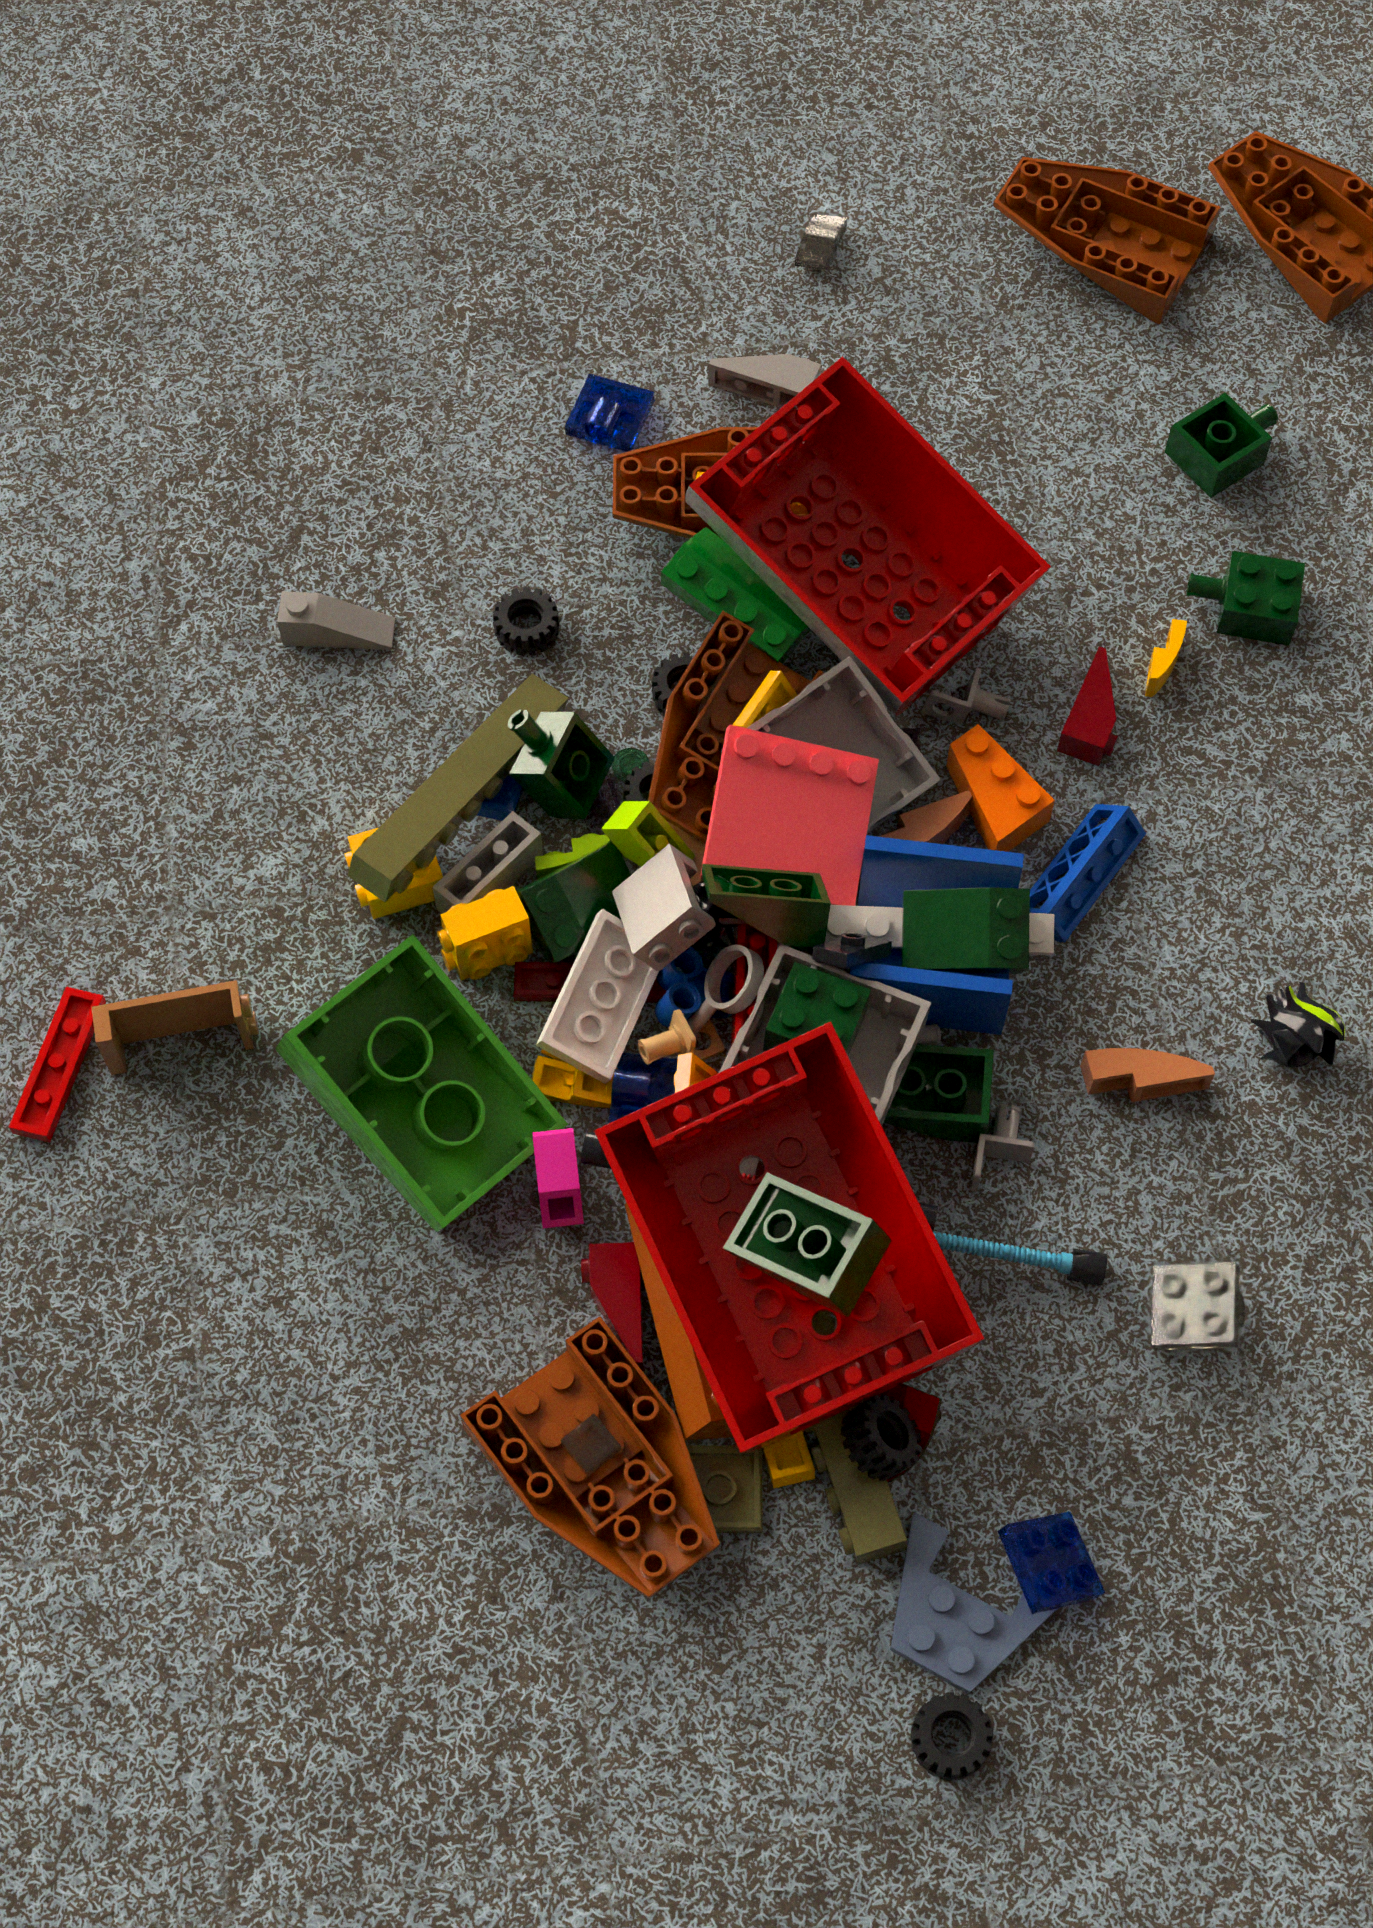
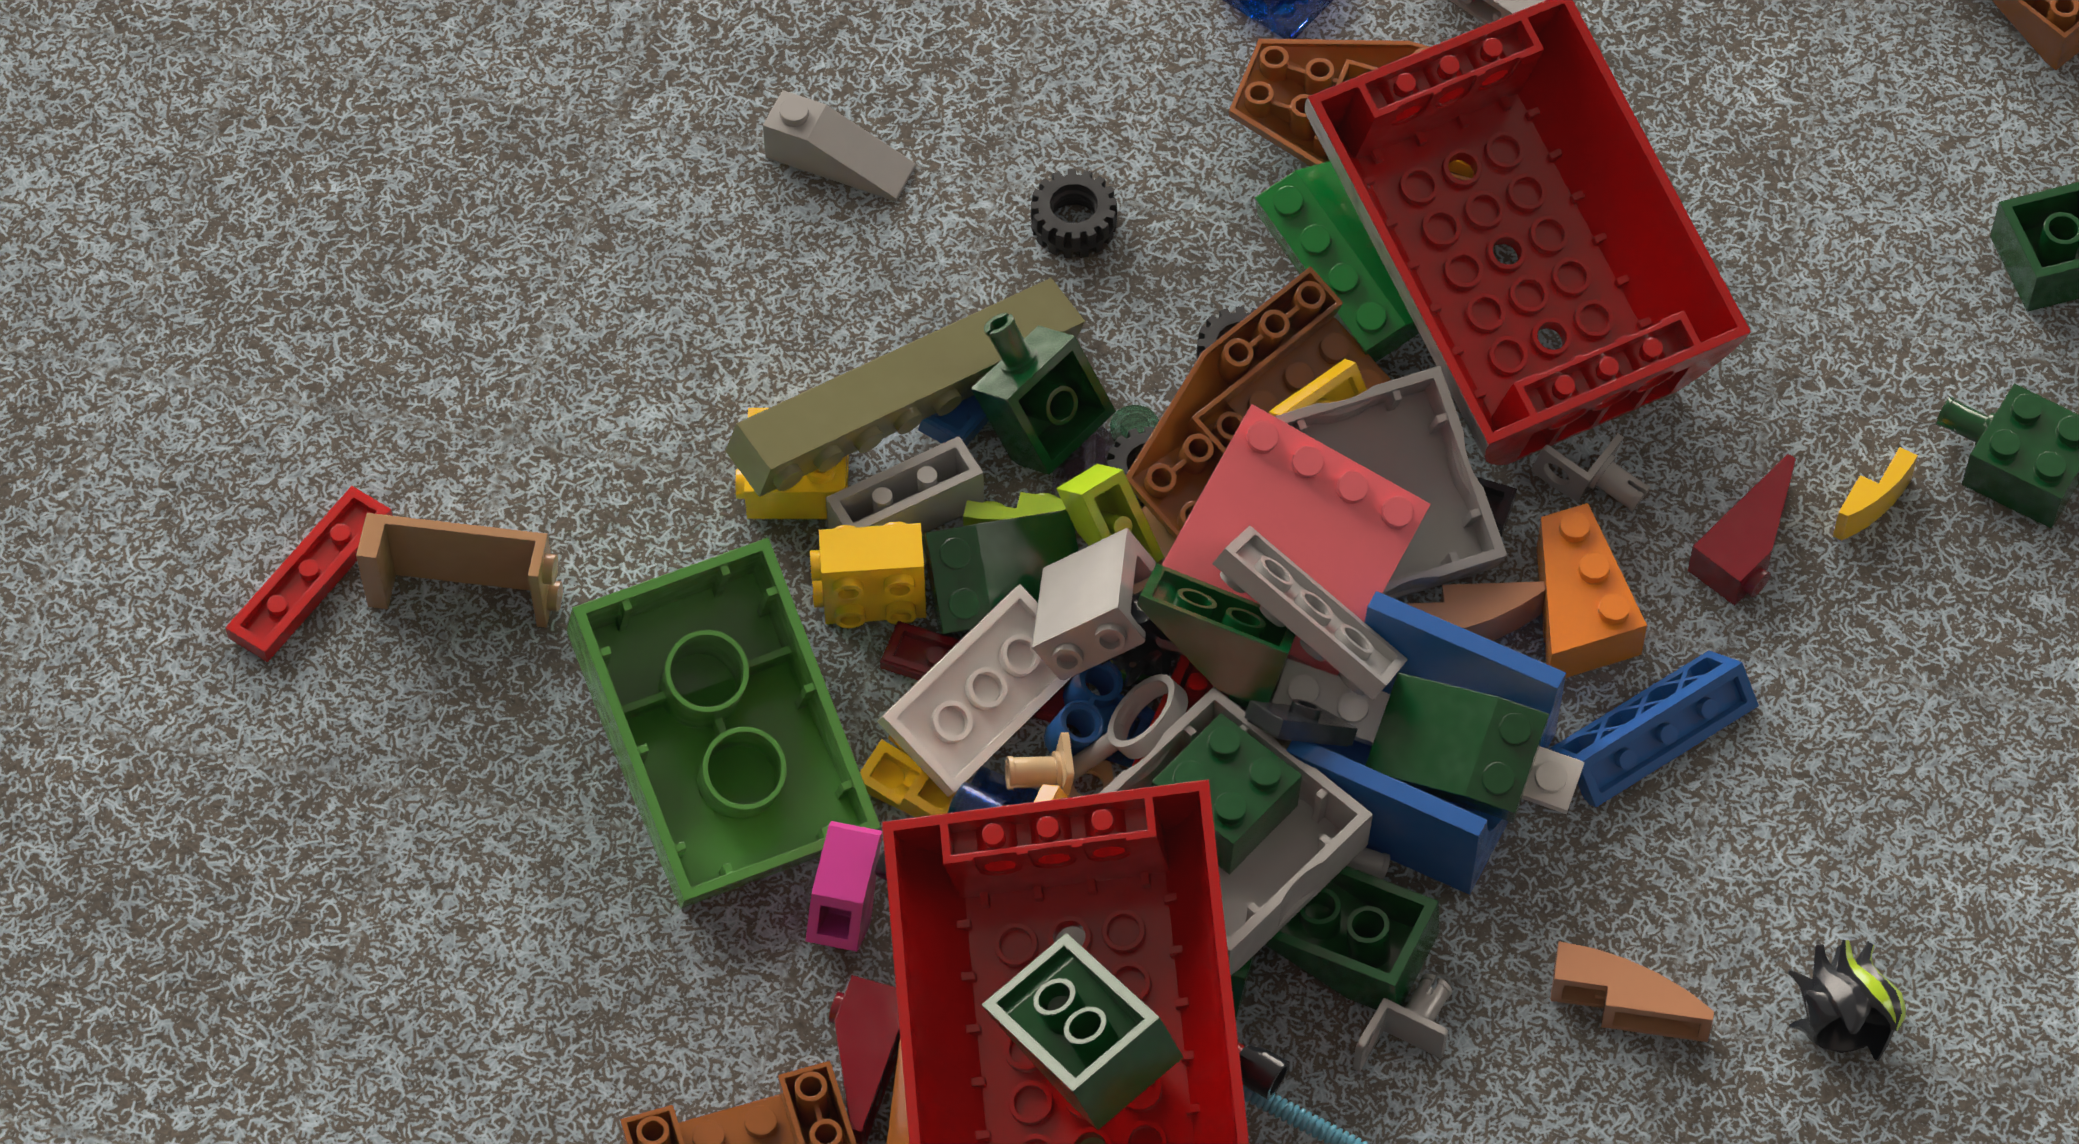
camera: 20 degrees right, 5 degrees down
(822, 863) = (1312, 613): none -> light grey plate

